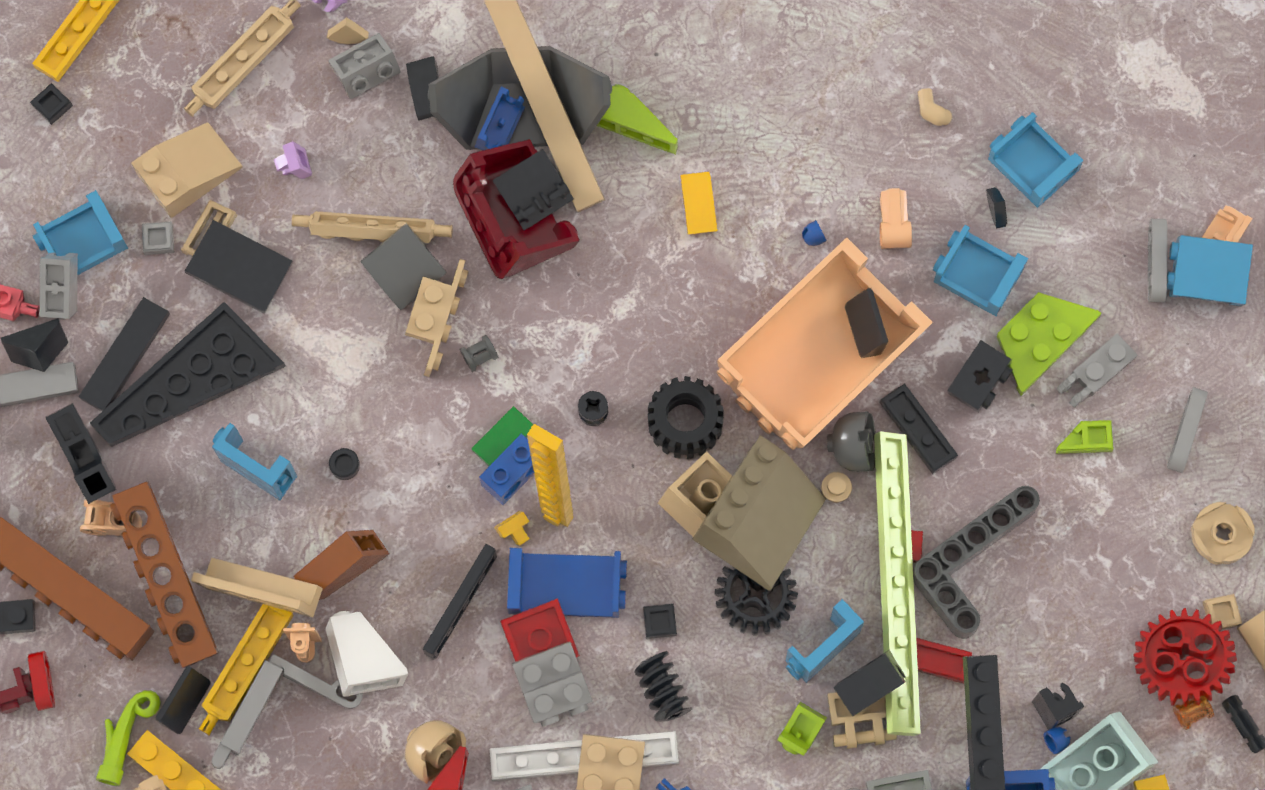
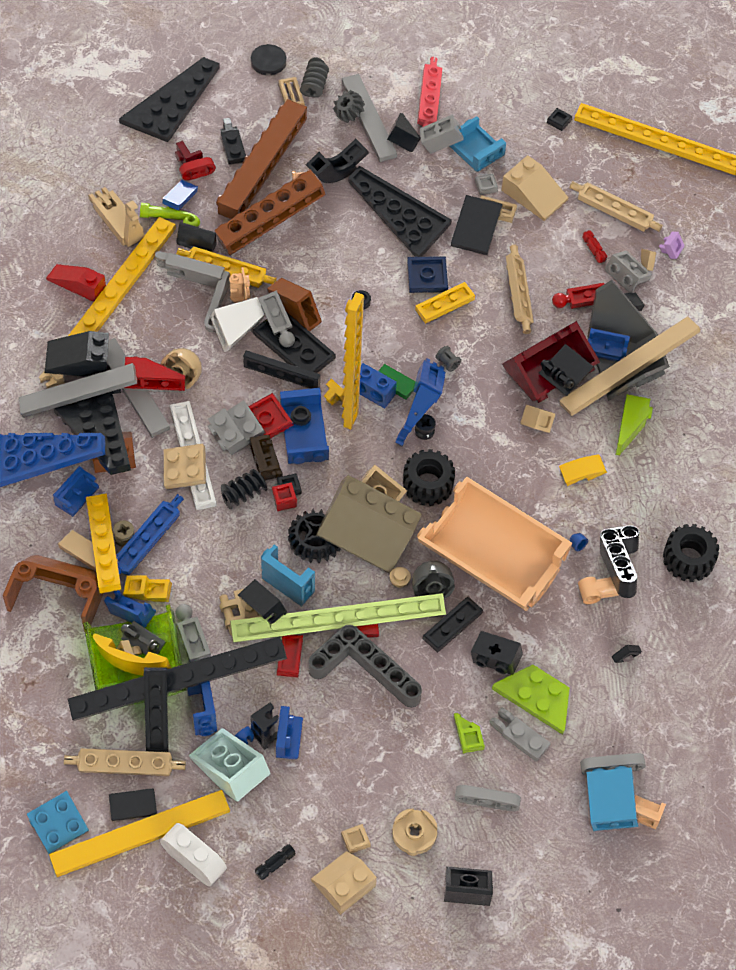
camera: 75 degrees right, 15 degrees down
(90, 715) = (180, 195): none -> tile
(124, 354) = (409, 179): black tile -> none
(260, 587) = (270, 261): tan fence -> none
(273, 480) = (354, 233): dark azure panel -> none
(293, 161) = (553, 242): lavender tile -> none
(309, 103) = (594, 246): none -> red axle
(318, 356) = (427, 274): none -> dark blue plate
(369, 592) = (277, 318): none -> light grey plate
(375, 340) = (445, 302): none -> yellow plate
(400, 140) = (576, 297): none -> red plate
(401, 265) = (496, 307): dark grey slope -> none
(408, 576) = (306, 351): none -> black tile
(431, 311) = (468, 328): tan bracket -> none
(546, 585) = (300, 416): none -> black plate
(547, 388) = (428, 390): none -> blue hinge
(605, 247) = (537, 418): none -> tan panel
(610, 648) = (265, 457): none -> dark brown hinge
(682, 629) = (284, 497): none -> red slope
(801, 729) = (226, 574): lime bracket -> none
(863, 66) = (696, 539): none -> black tyre
(866, 324) = (516, 572): black slope -> none
(869, 178) = (614, 549): none -> black beam
(930, 111) = (688, 603): tan arm -> none
(978, 271) = (576, 646): dark azure panel -> none
(1033, 160) = (669, 673): dark azure panel -> none
(1080, 679) = (288, 734): none -> blue bracket
(1177, 682) = (298, 808): red gear -> none
(1193, 713) = (278, 823): clear orange bush -> none

